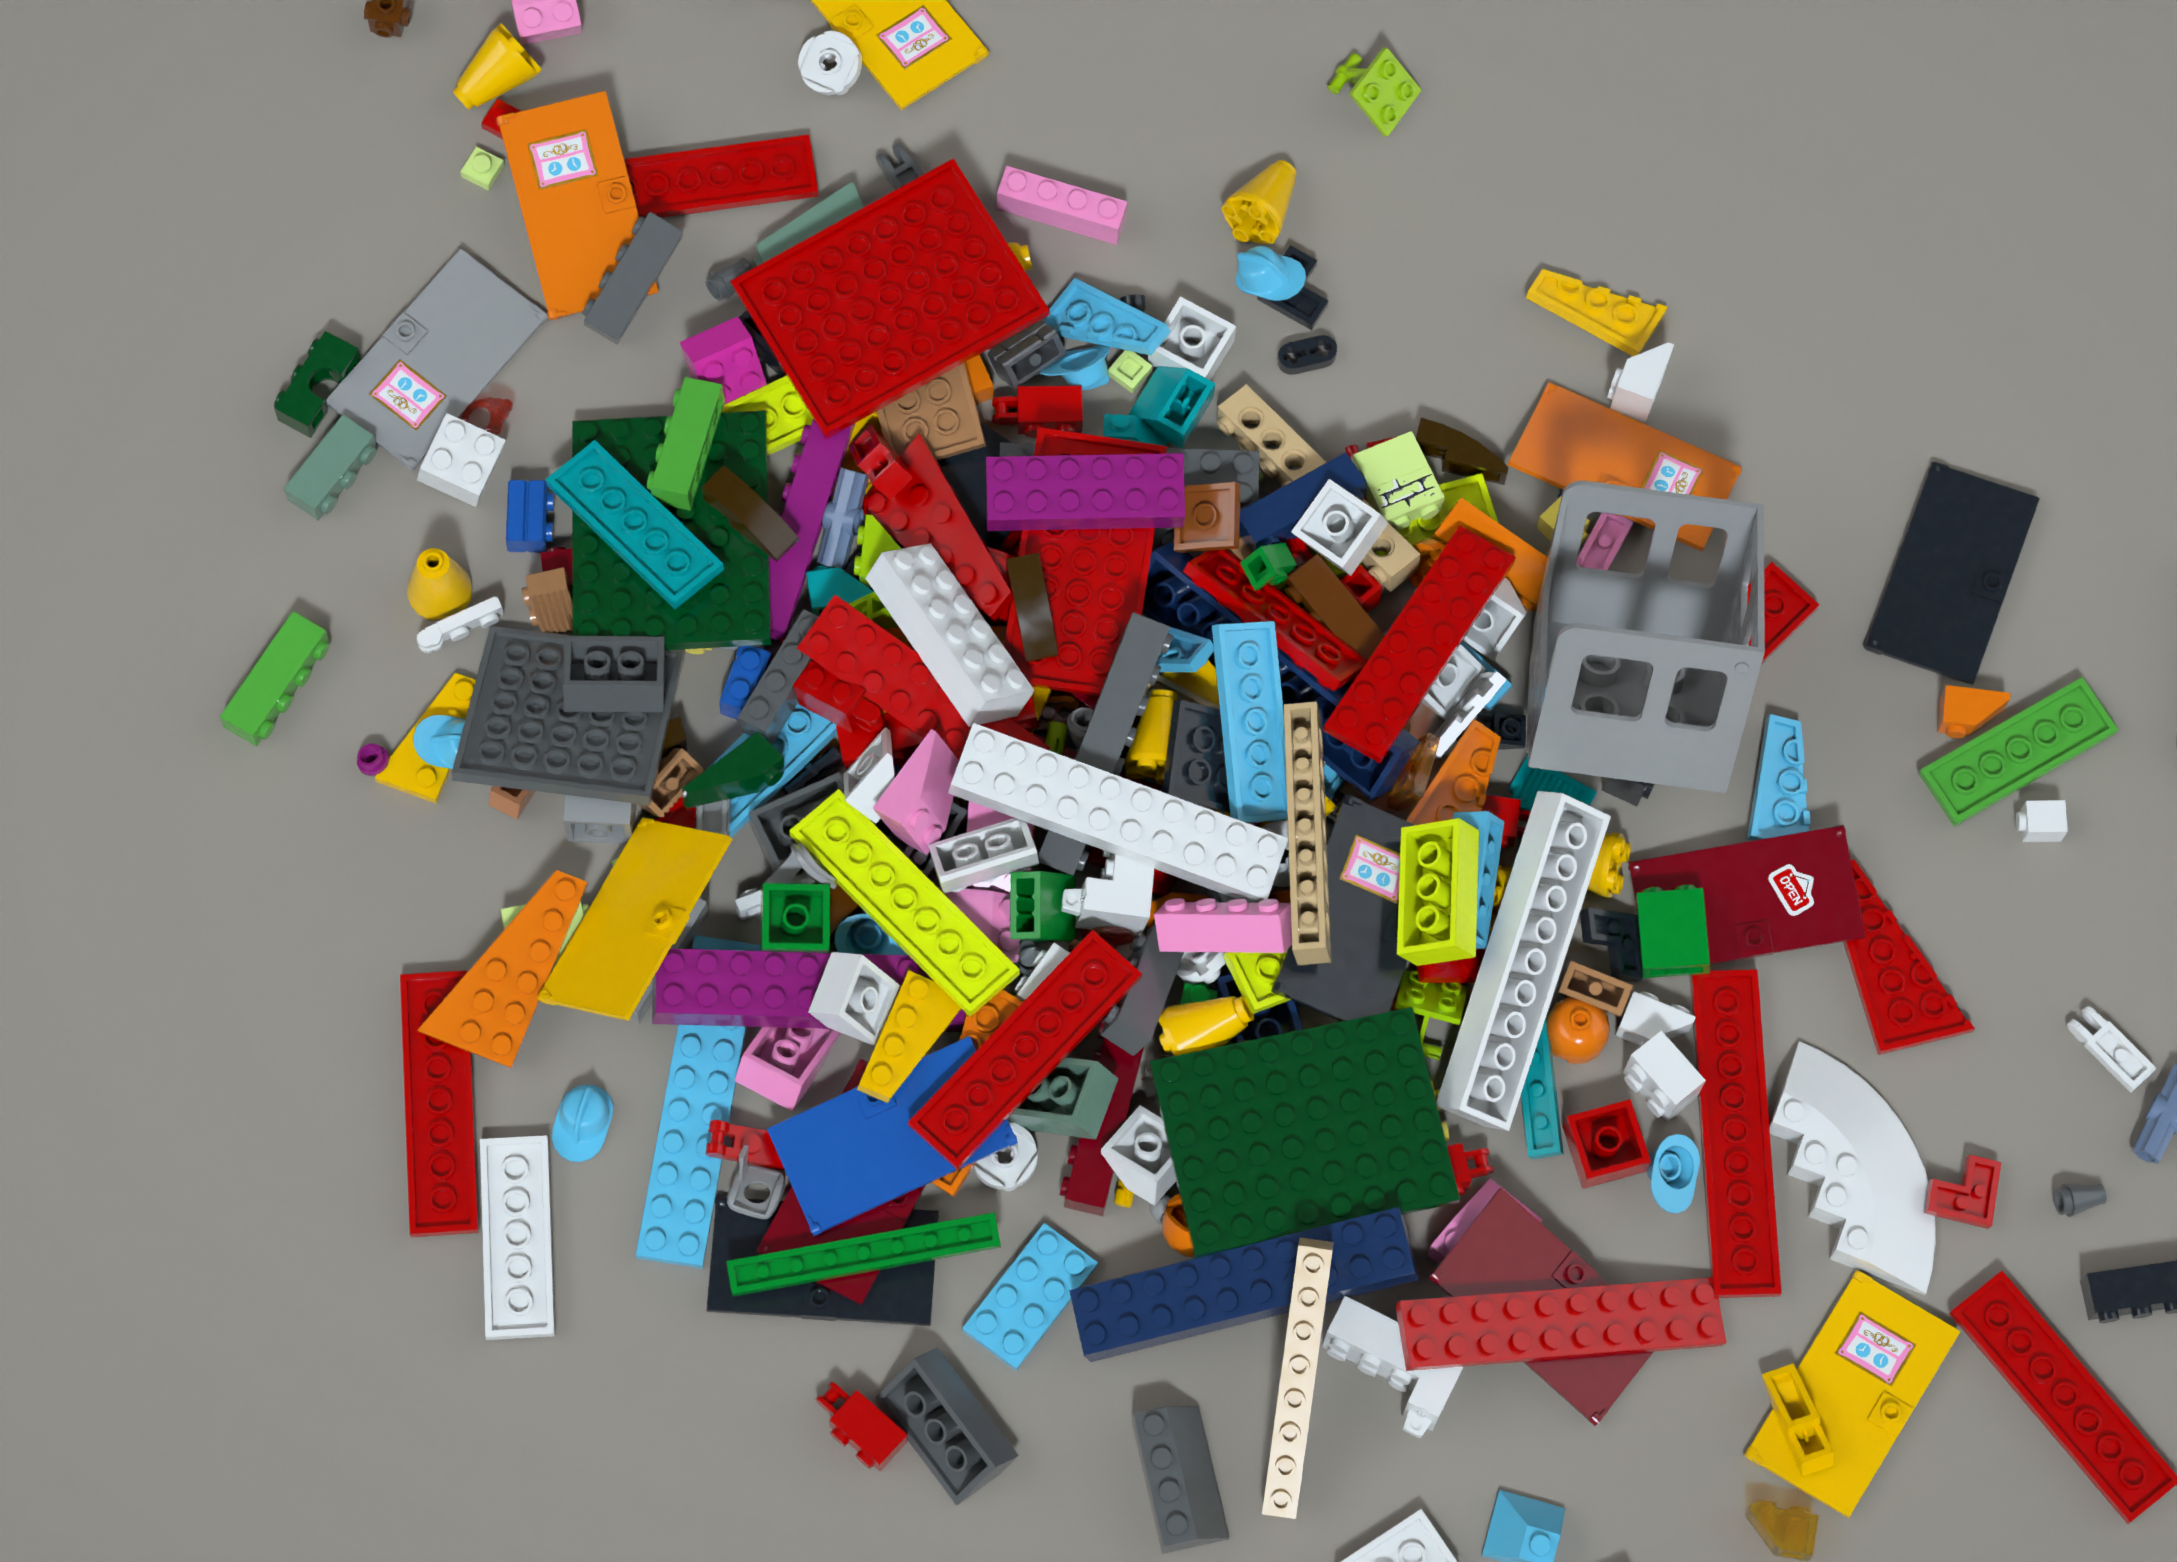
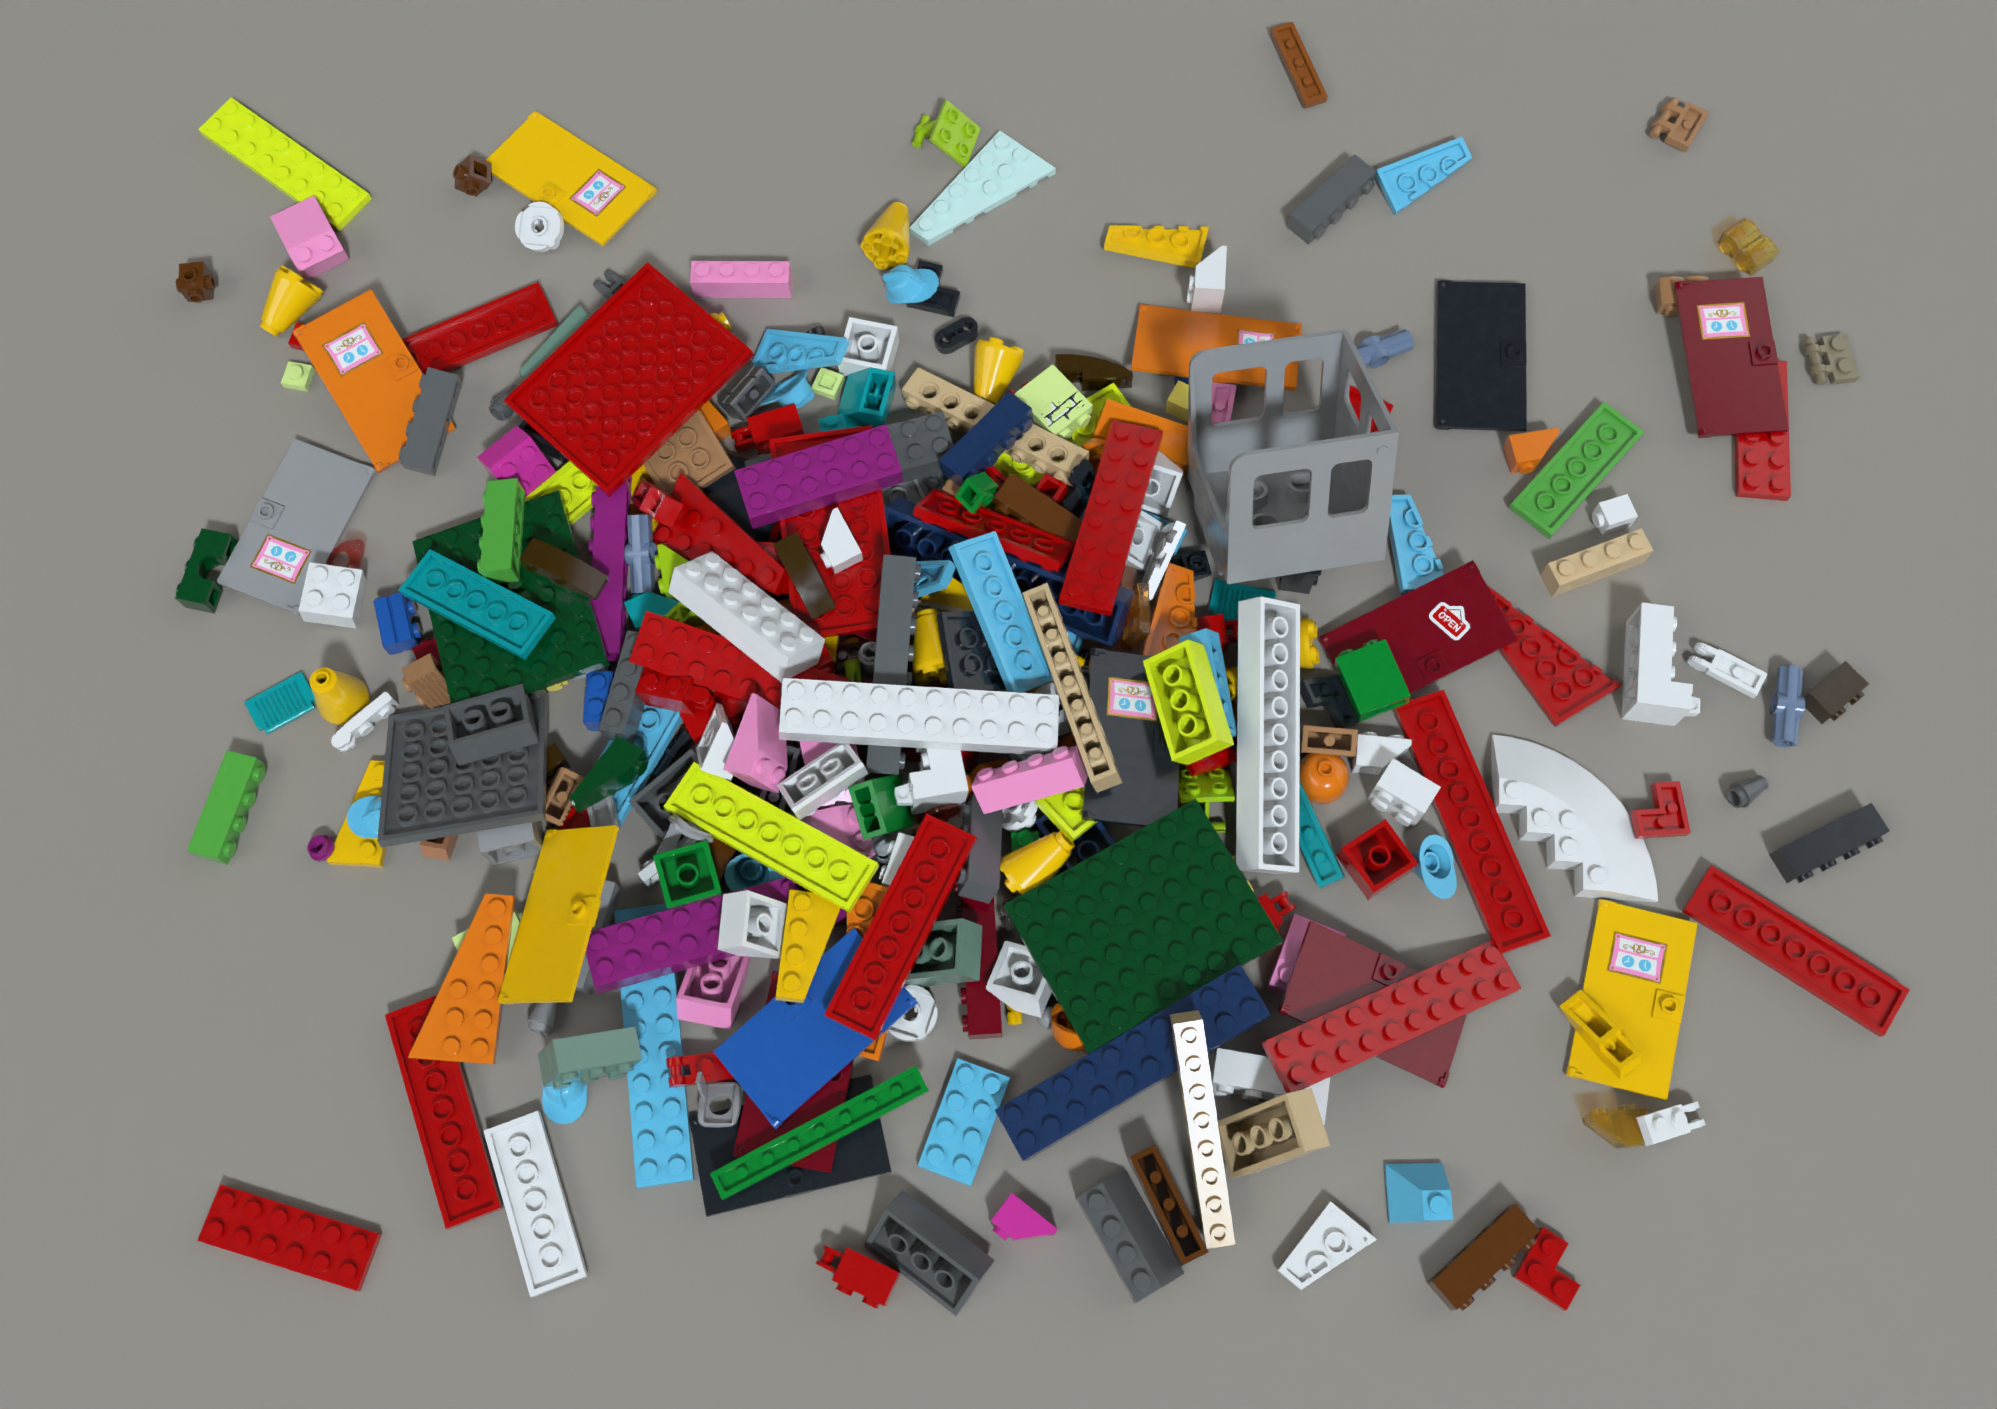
camera: 10 degrees left, 0 degrees up
(230, 1192) = (290, 1237): none -> red plate
(331, 468) = (233, 631): sand green brick -> none
(365, 572) = (281, 703): none -> teal window
(580, 1032) = (542, 1019): none -> light grey cone
(625, 1091) = (589, 1057): none -> sand green brick
(1061, 1424) = (1020, 1221): none -> dark pink slope
(1084, 581) = (839, 544): none -> white slope
(1210, 518) = (921, 469): dark orange plate -> none
(1233, 1455) = (1167, 1205): none -> reddish brown brick
(1339, 414) = (994, 368): none -> yellow cone
(1340, 527) = (1022, 447): white slope -> none
(1374, 1407) = (1272, 1133): none -> tan brick
(1400, 586) = (1082, 480): none -> black plate
(1403, 167) = (984, 184): none -> light aqua wing
(1820, 529) = (1378, 350): none -> sand blue piece
(1834, 317) = (1331, 199): none -> dark grey brick
(1838, 1540) = (1668, 1123): none -> white hinge
(1854, 125) = (1298, 65): none -> dark orange plate
(1956, 315) = (1417, 174): none -> medium azure wing
(1998, 873) = (1596, 562): none -> tan brick
(2003, 1044) = (1649, 672): none -> white hinge

